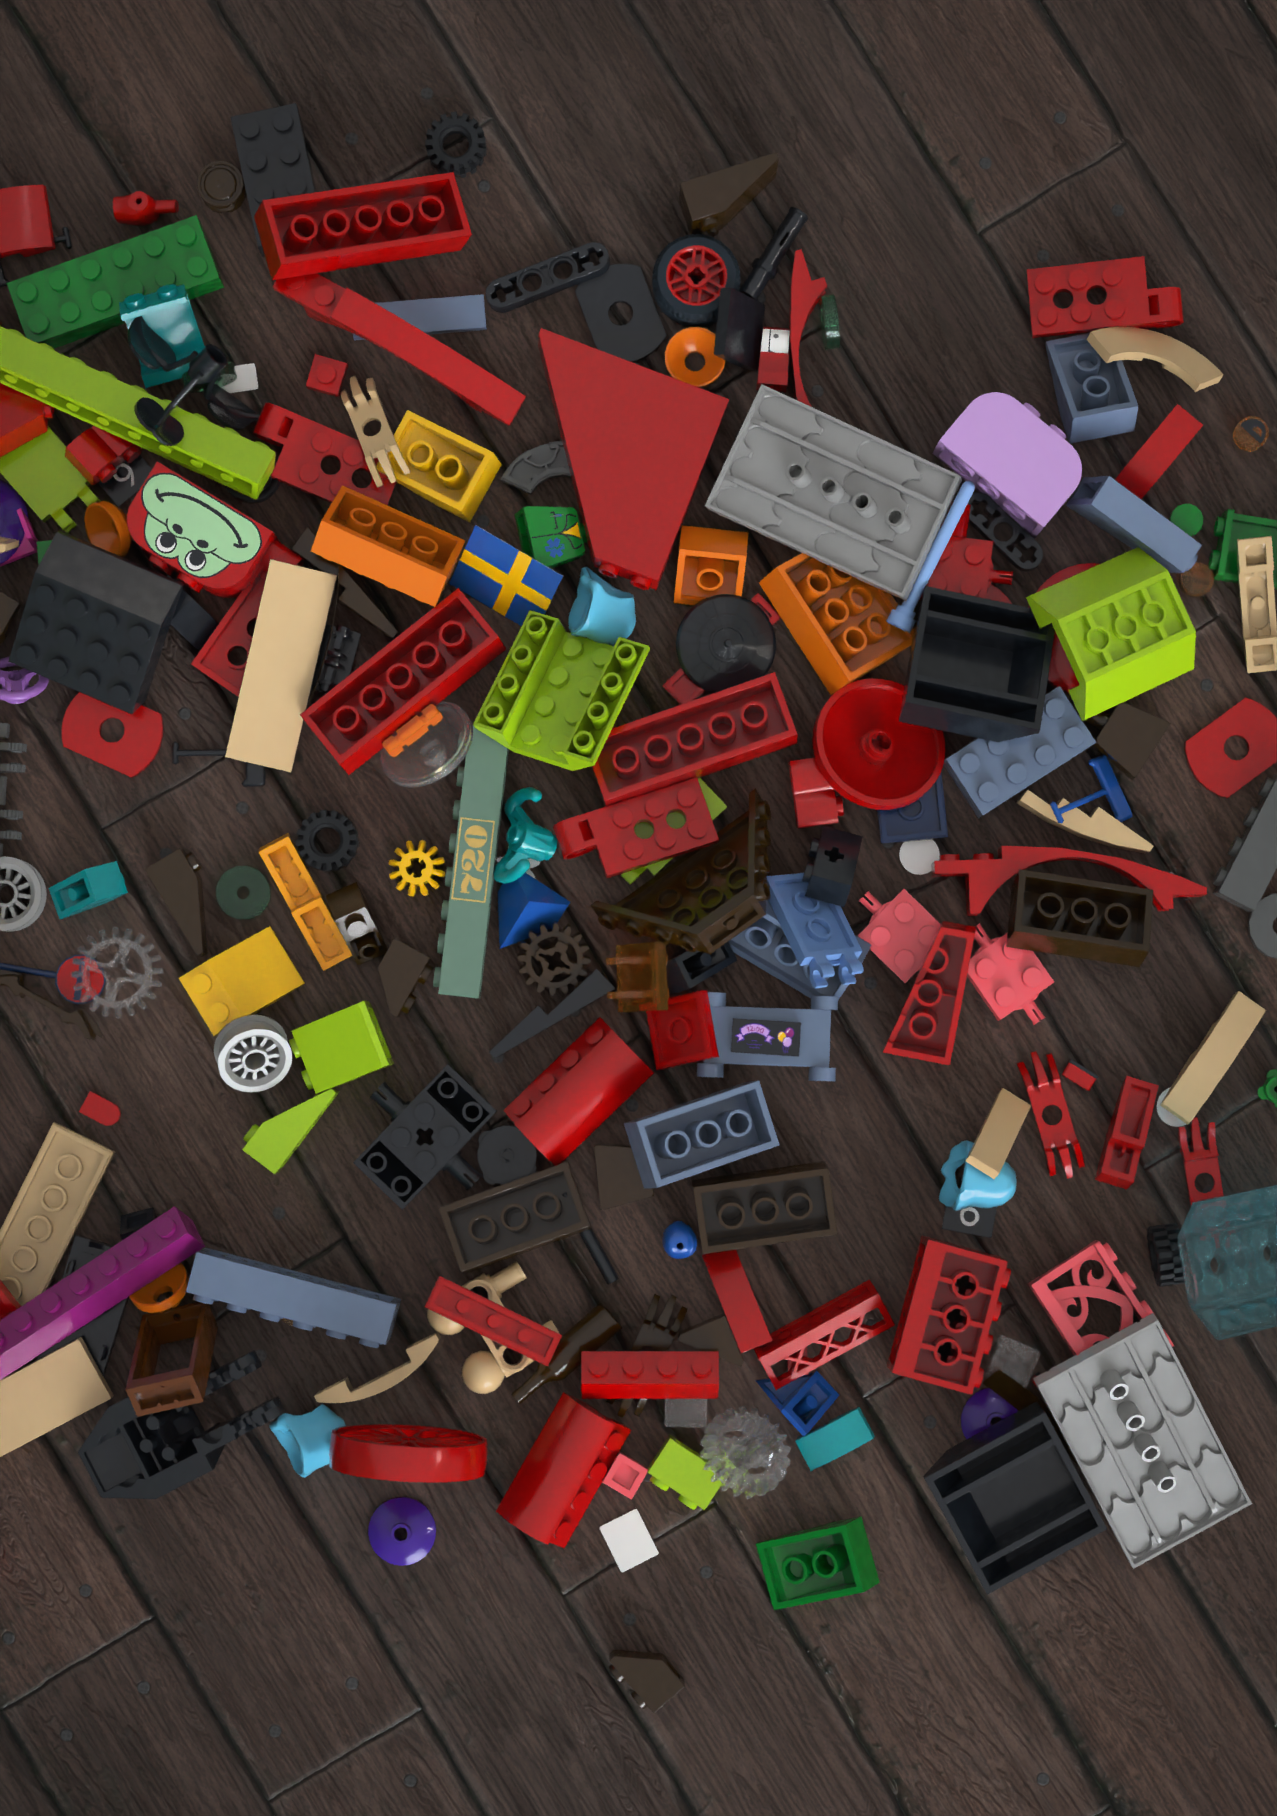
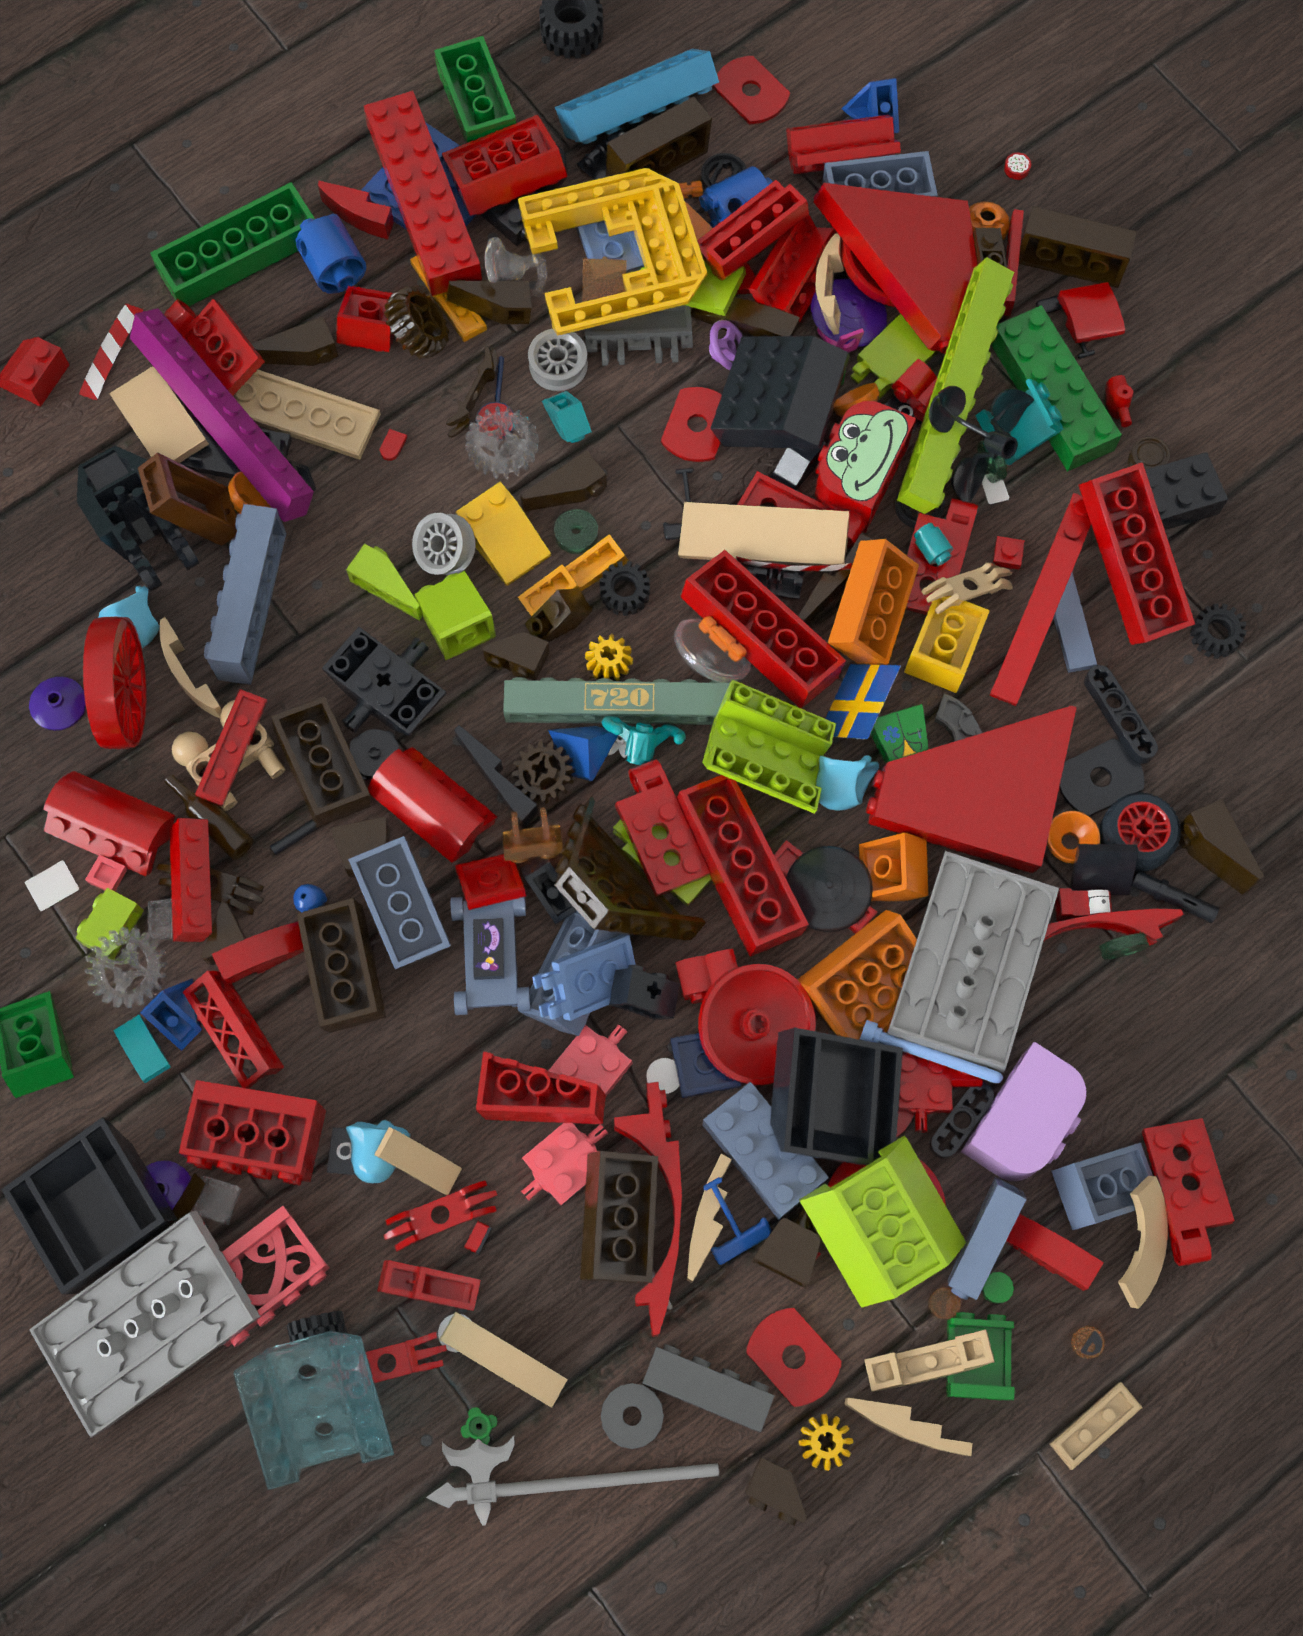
camera: 85 degrees right, 15 degrees down
(321, 464) = (933, 544): none -> teal brick

